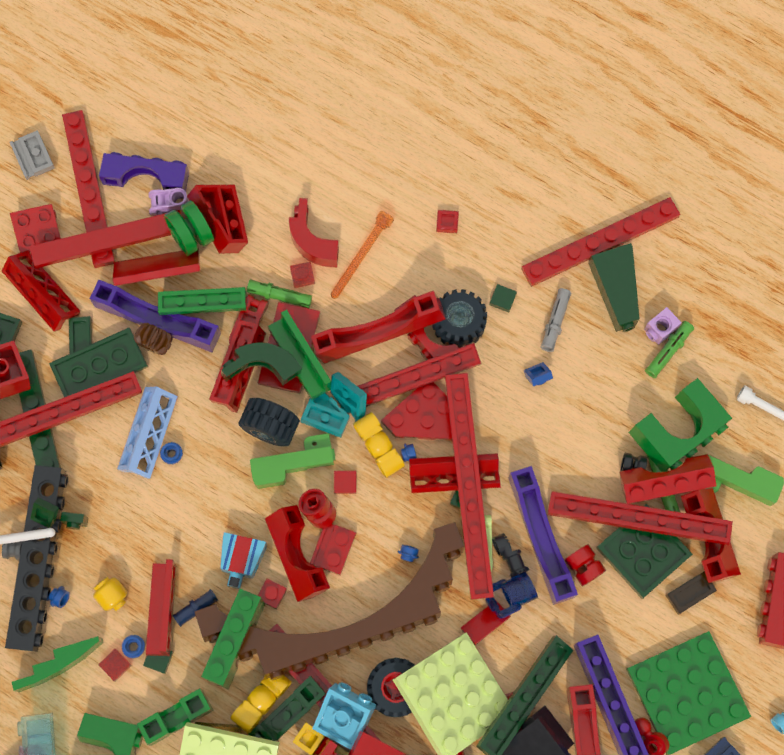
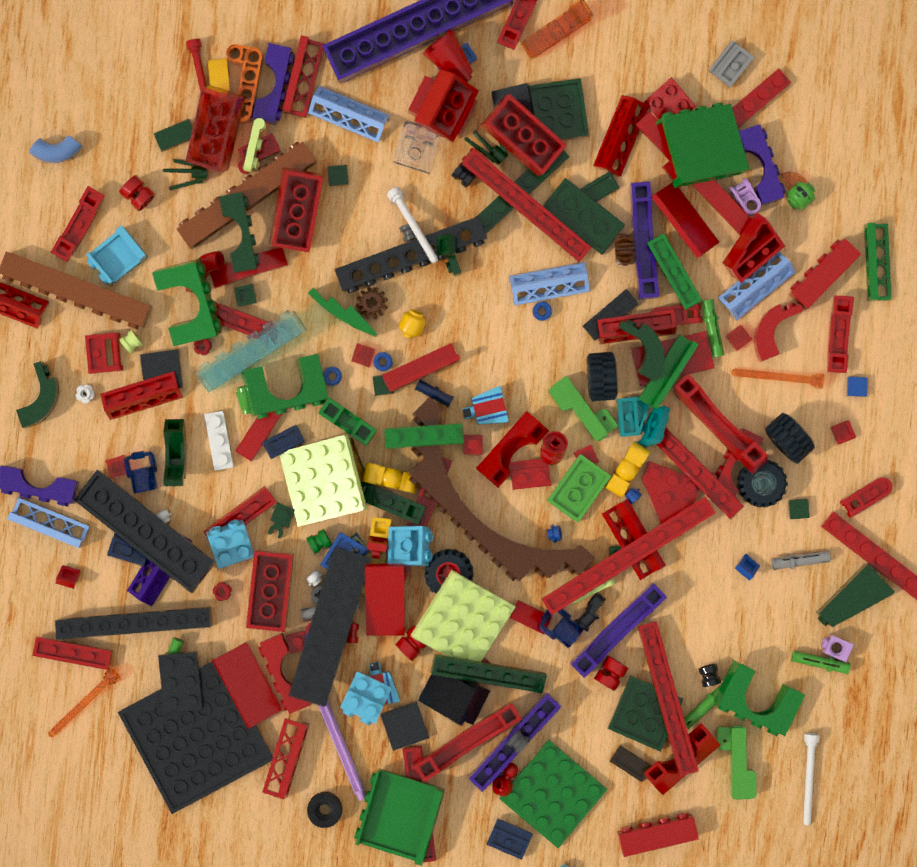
camera: 65 degrees right, 15 degrees up
(56, 628) = (368, 297): none -> reddish brown gear
(59, 597) = (391, 286): blue plate -> none
(93, 211) = (704, 144): none -> green panel
(111, 710) = (332, 370): none -> blue plate
(176, 151) = (792, 178): none -> clear orange tile
(189, 228) = (726, 229): green wheel -> none
(195, 150) = (801, 195): none -> bright green head
(208, 372) = (618, 307): none -> black tile
(263, 229) = (759, 287): none -> light blue fence
(282, 164) = (828, 270): none -> red brick
(297, 117) = (872, 262): none -> green fence
(347, 179) = (839, 334): none -> red slope
(373, 504) = (579, 488): none -> bright green plate
(409, 188) = (857, 386): none -> blue tile
(427, 268) = (790, 438): none -> black wheel
(522, 227) = (867, 495): none -> red plate
(615, 699) = (518, 741): none -> dark grey wheel
(692, 475) = (719, 724): red arch -> none

